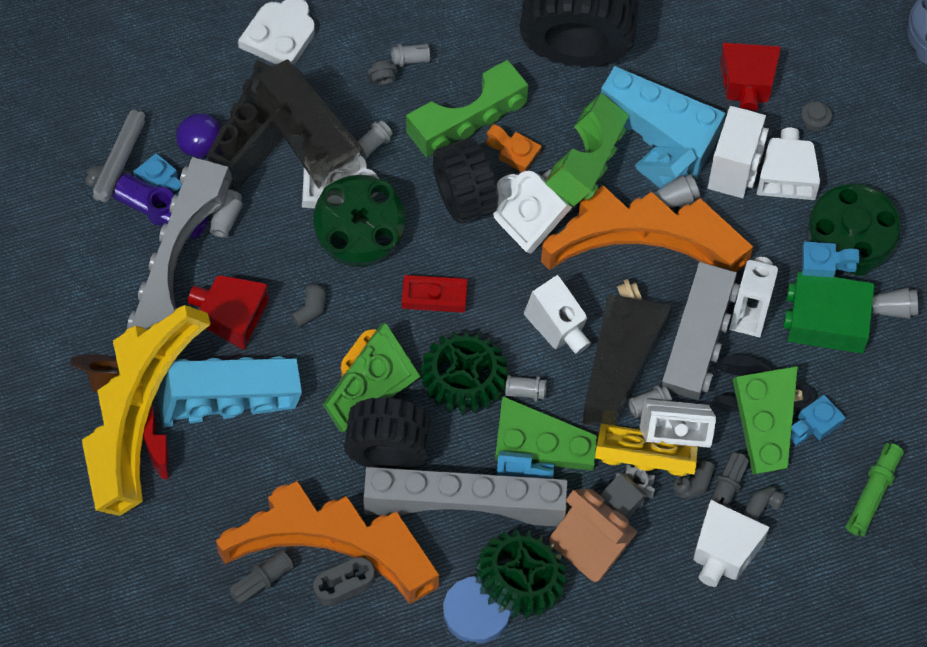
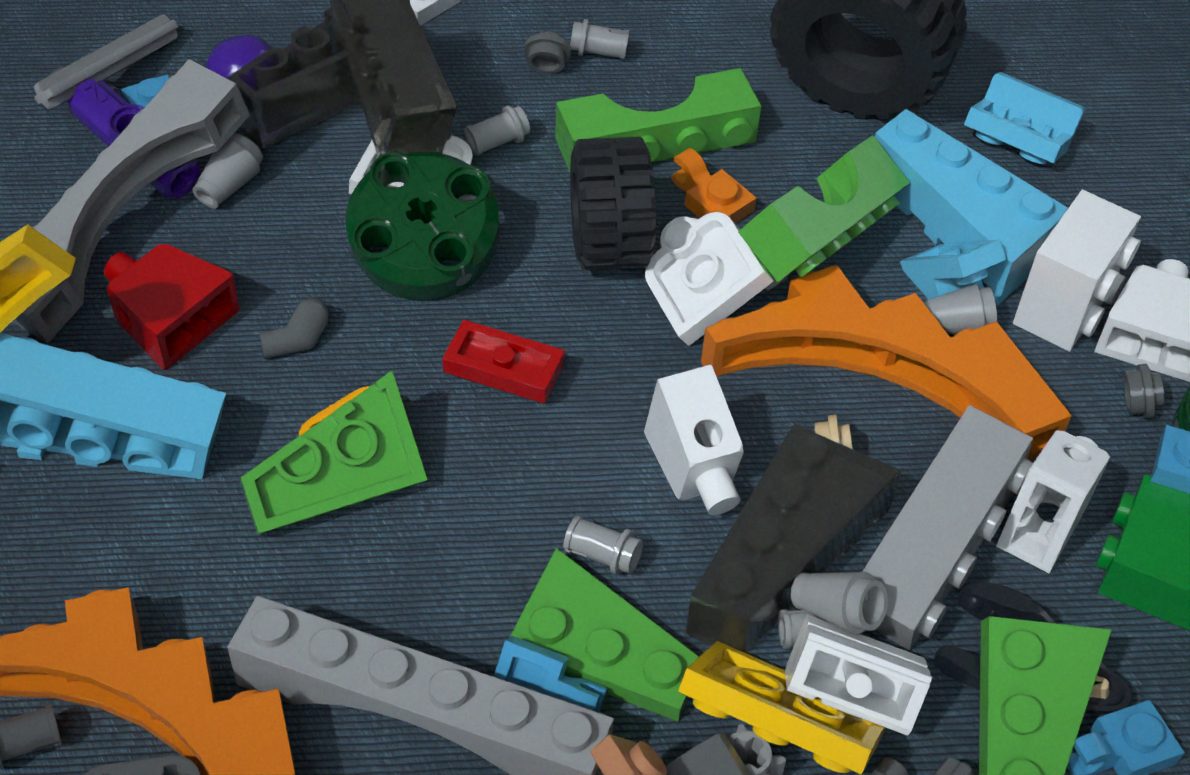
camera: 15 degrees right, 10 degrees down
(387, 434) = (319, 548): black tyre -> none
(465, 357) = (490, 490): dark green gear -> none
(660, 386) = (842, 598): none -> light grey cone
(684, 47) = (1026, 119): none -> medium azure bracket
(748, 73) = (1125, 167): red torso -> none
(788, 216) = (1143, 391): none -> dark grey plate

